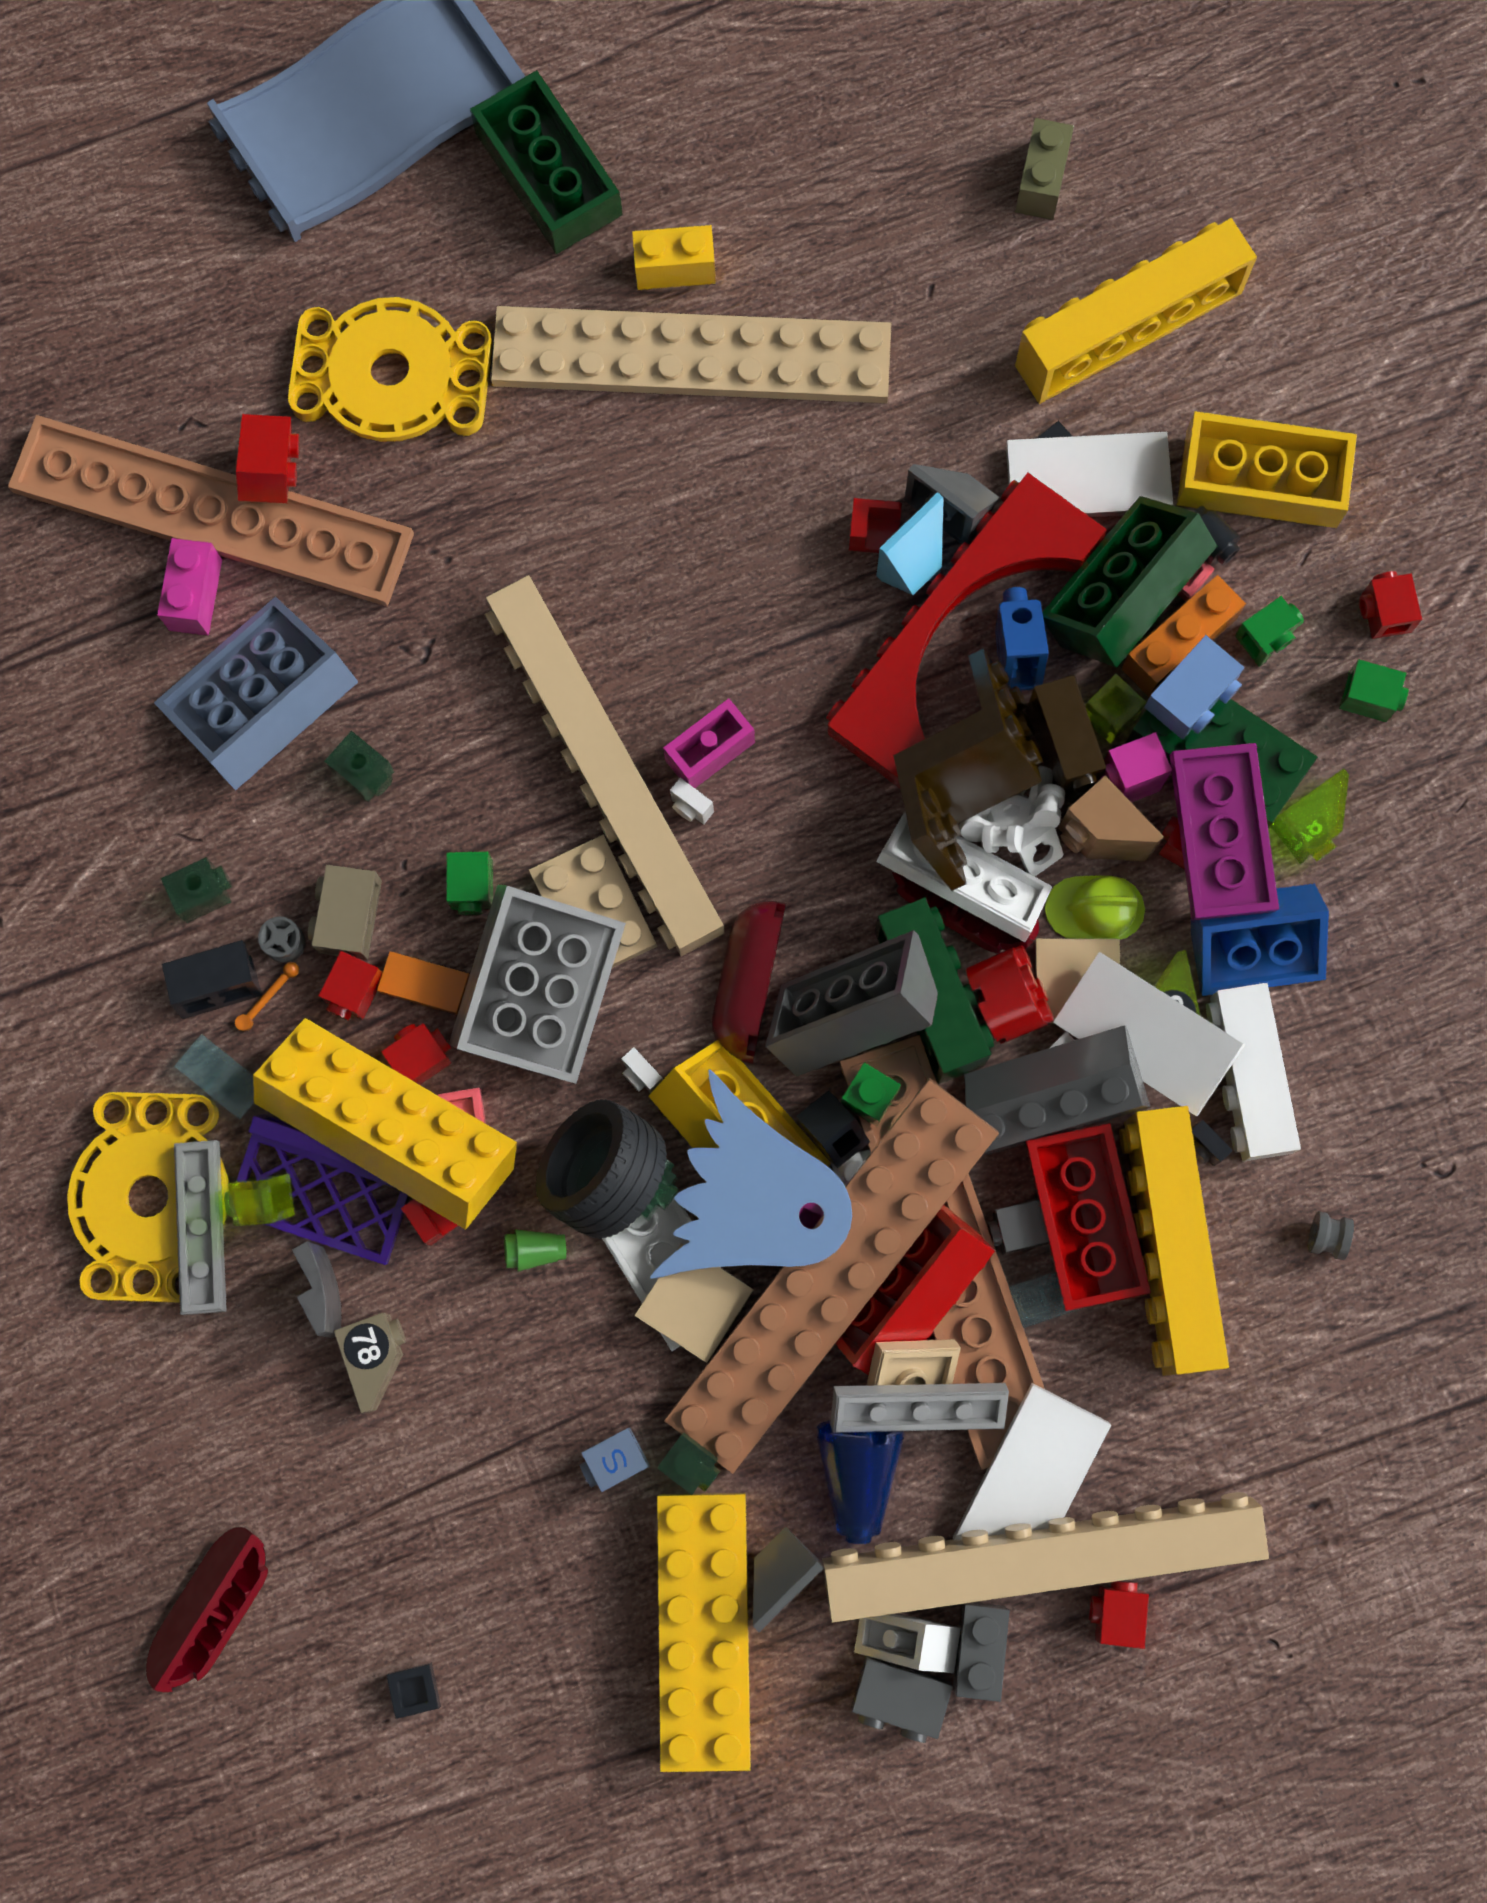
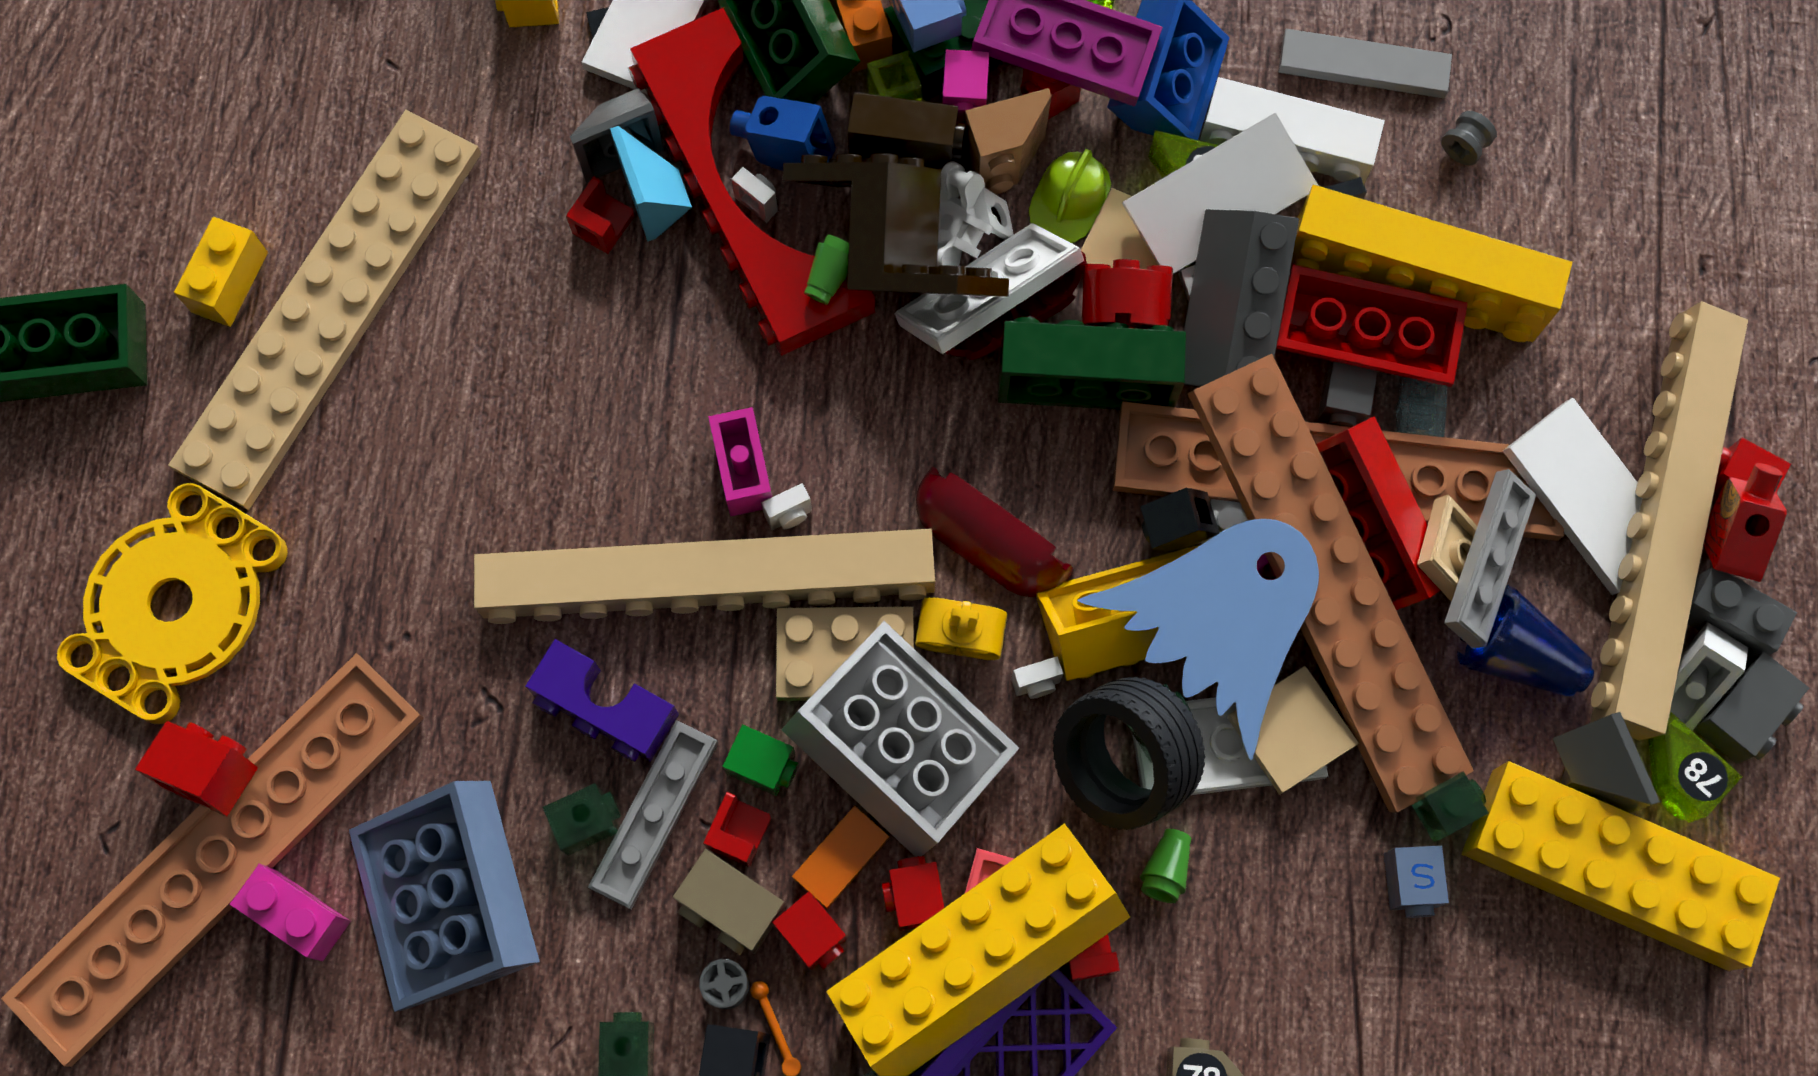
camera: 70 degrees left, 5 degrees down
(392, 821) = (653, 814): none -> light grey tile
(406, 891) = (737, 830): none -> red panel
(460, 700) = (634, 724): none -> dark purple arch
(655, 991) = (961, 628): none -> yellow beam
(815, 1662) = (1688, 772): none -> clear neon green slope
(853, 1005) = (1075, 437): dark grey slope -> none
(870, 1094) = (1166, 465): green brick -> none
(904, 731) = (828, 269): none -> bright green cone
(959, 642) = (755, 193): none -> white plate
(1073, 1622) = (1746, 524): none -> red torso
(1362, 1112) = (1365, 63): none -> light grey tile

